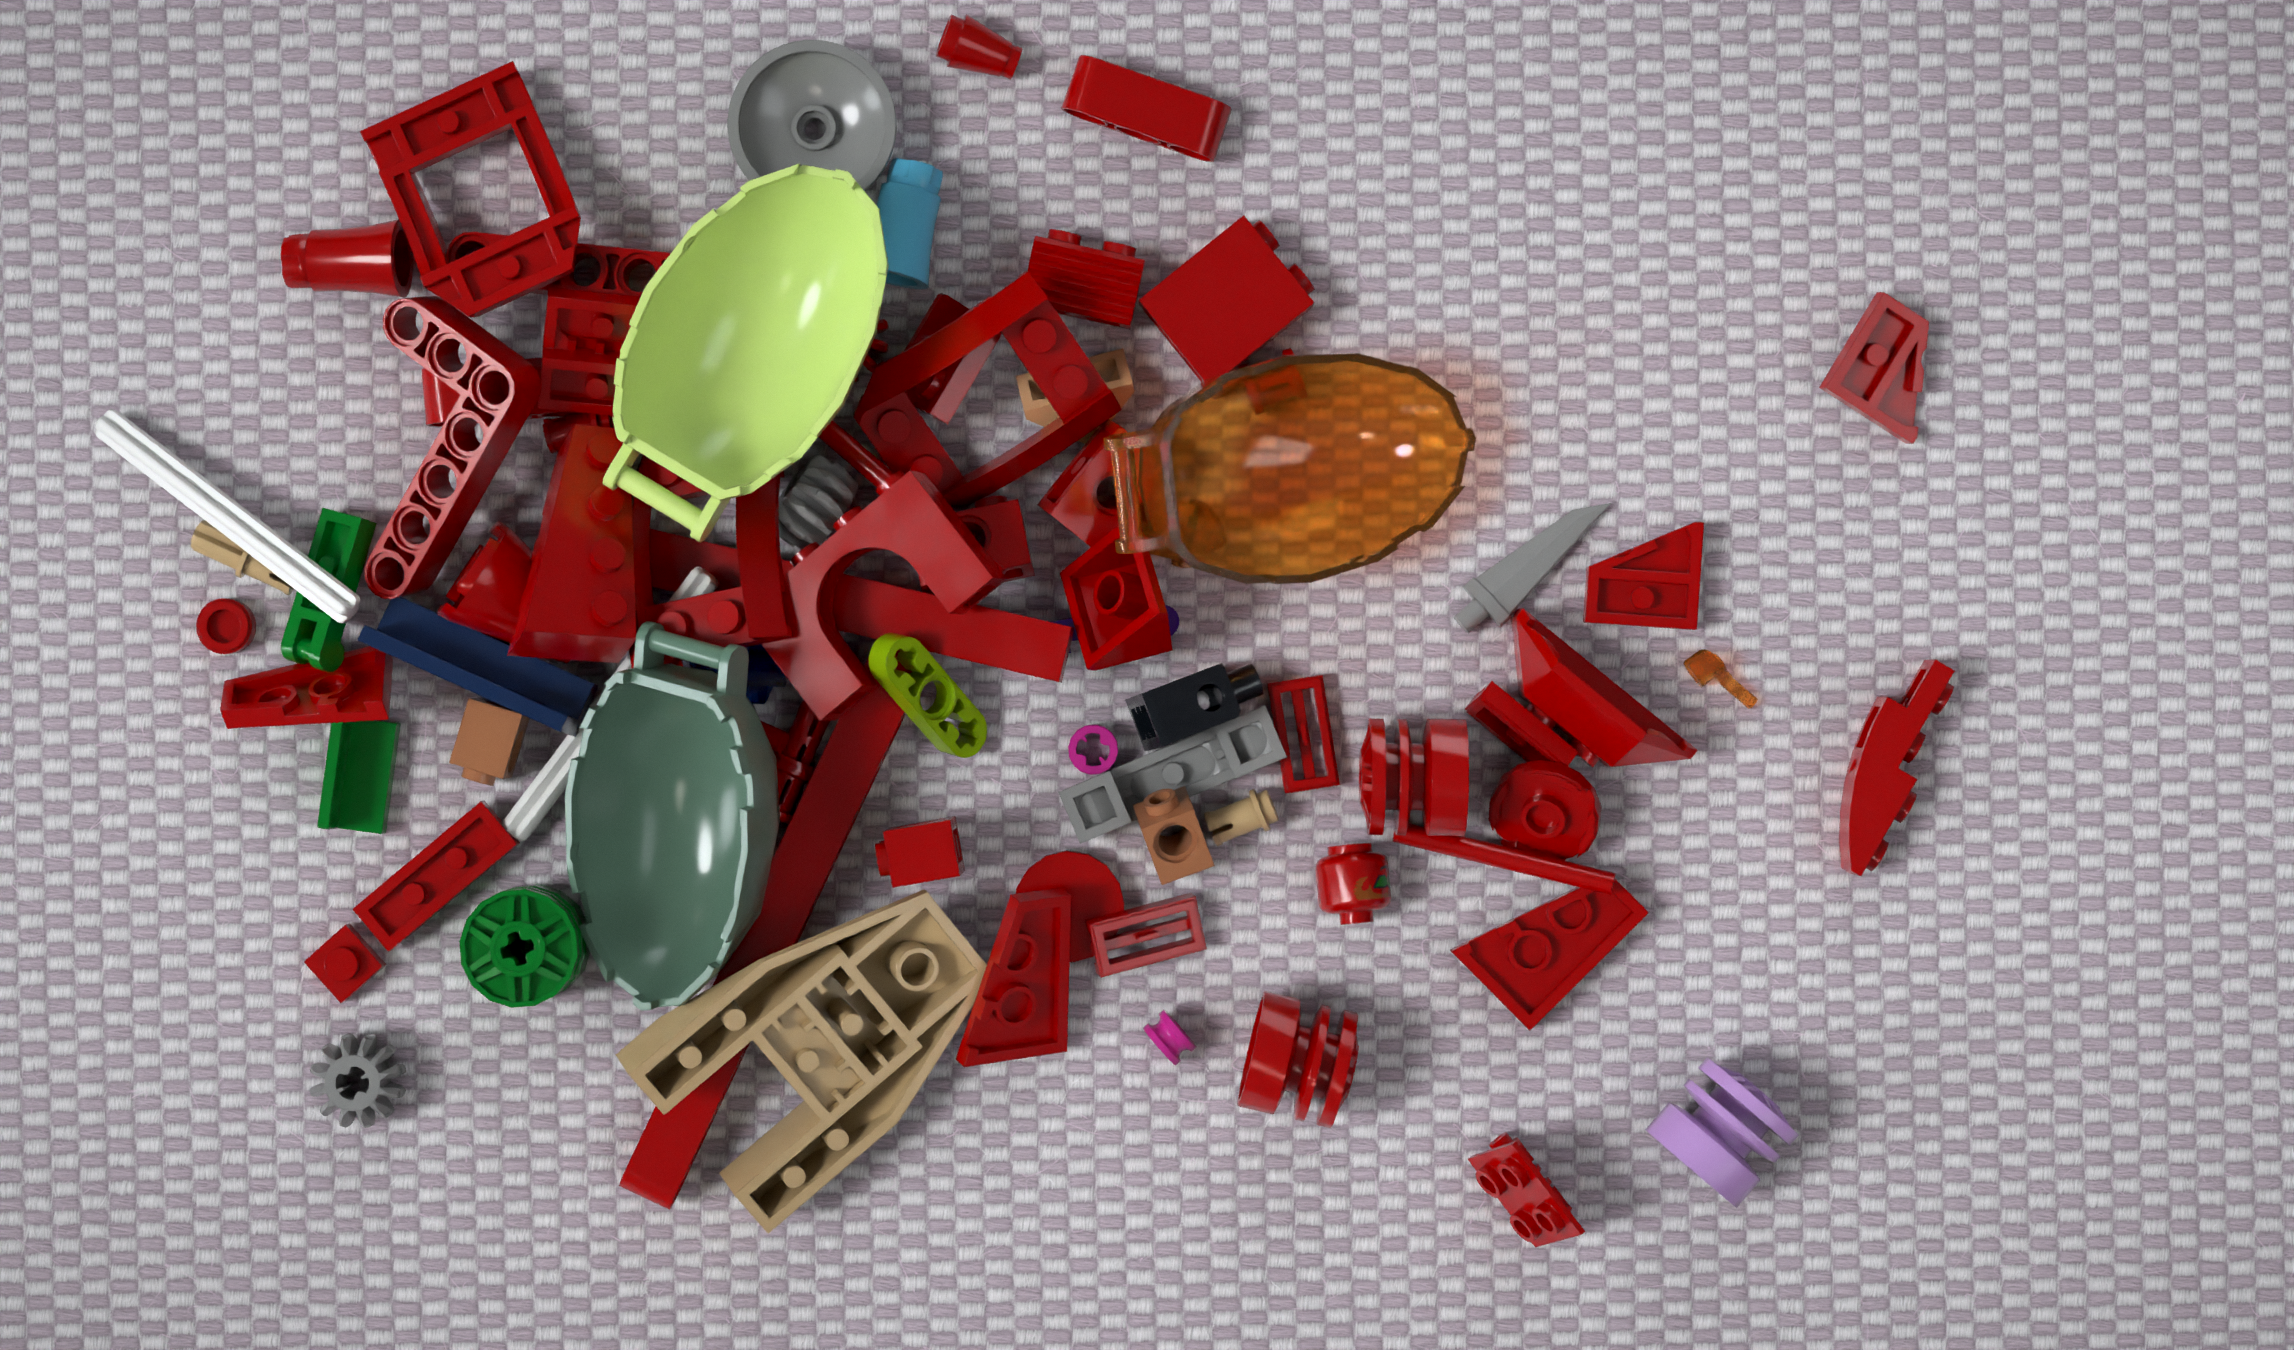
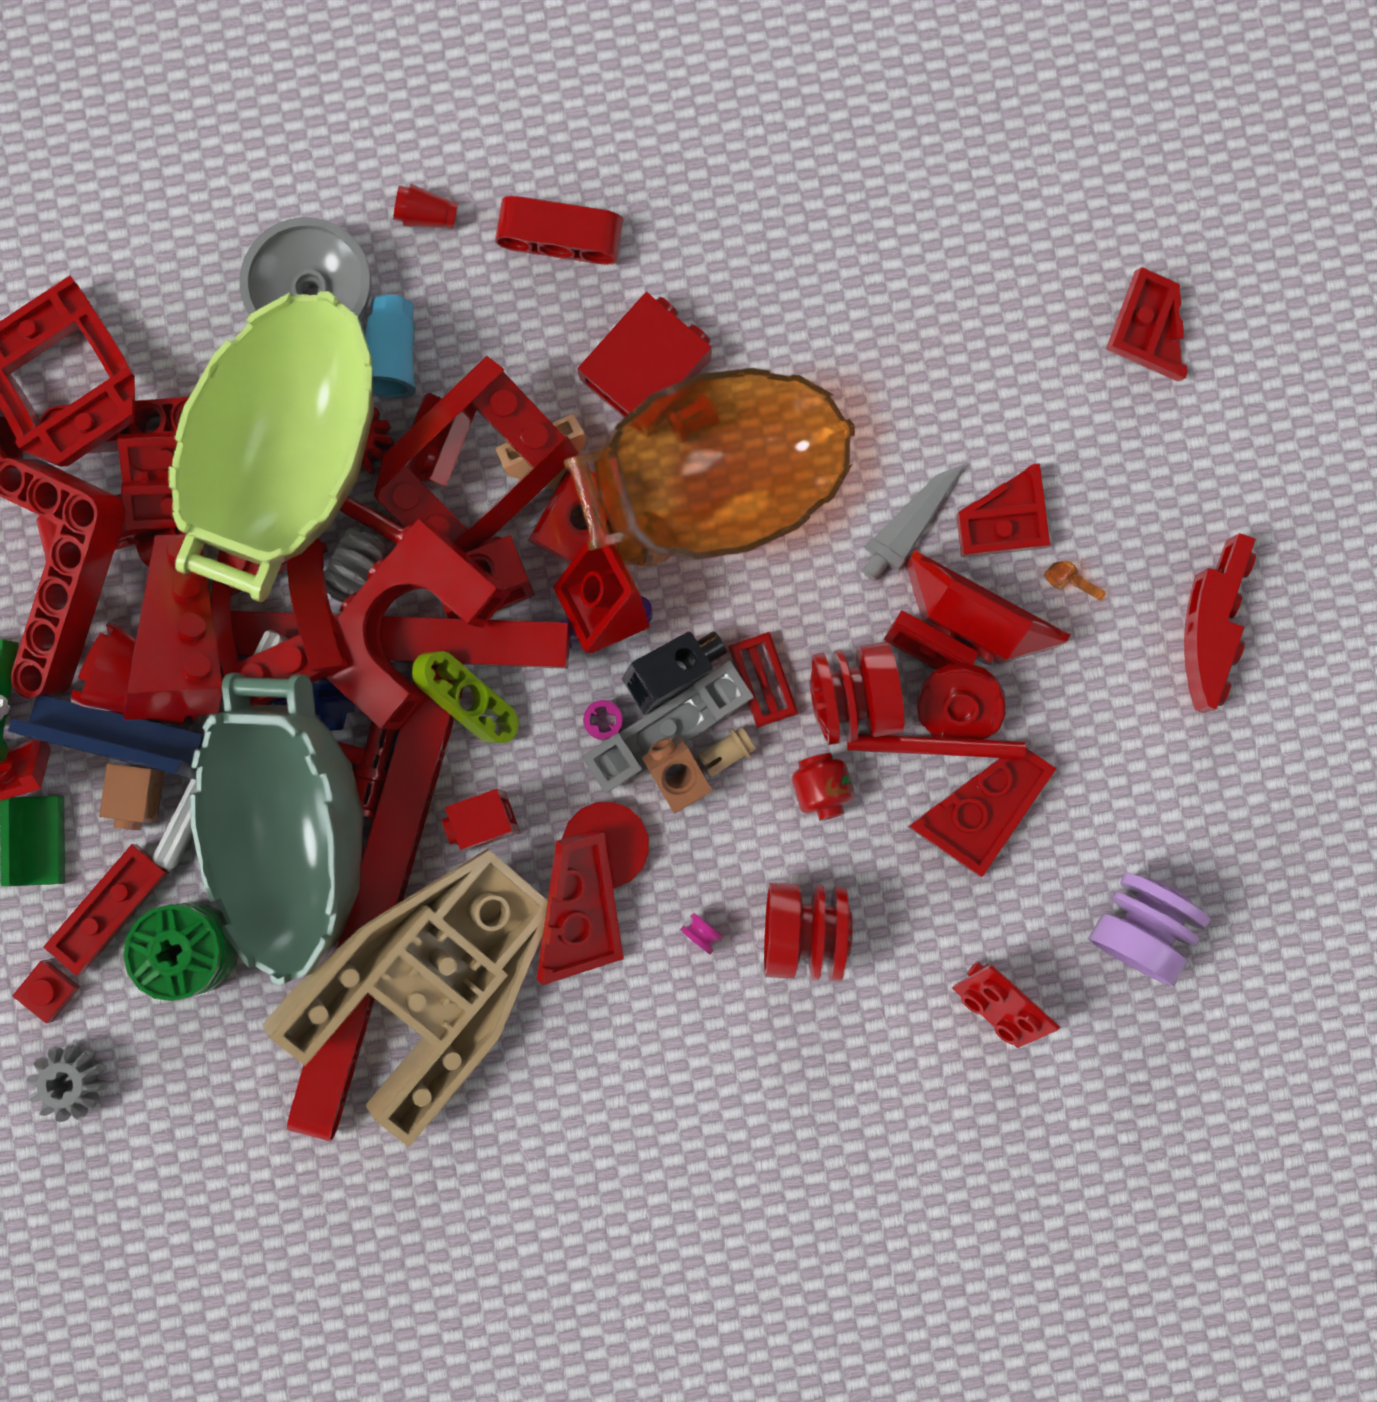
camera: 10 degrees left, 5 degrees down
(1087, 280) = (538, 364): red brick -> none
(1140, 914) = (635, 870): red tile -> none

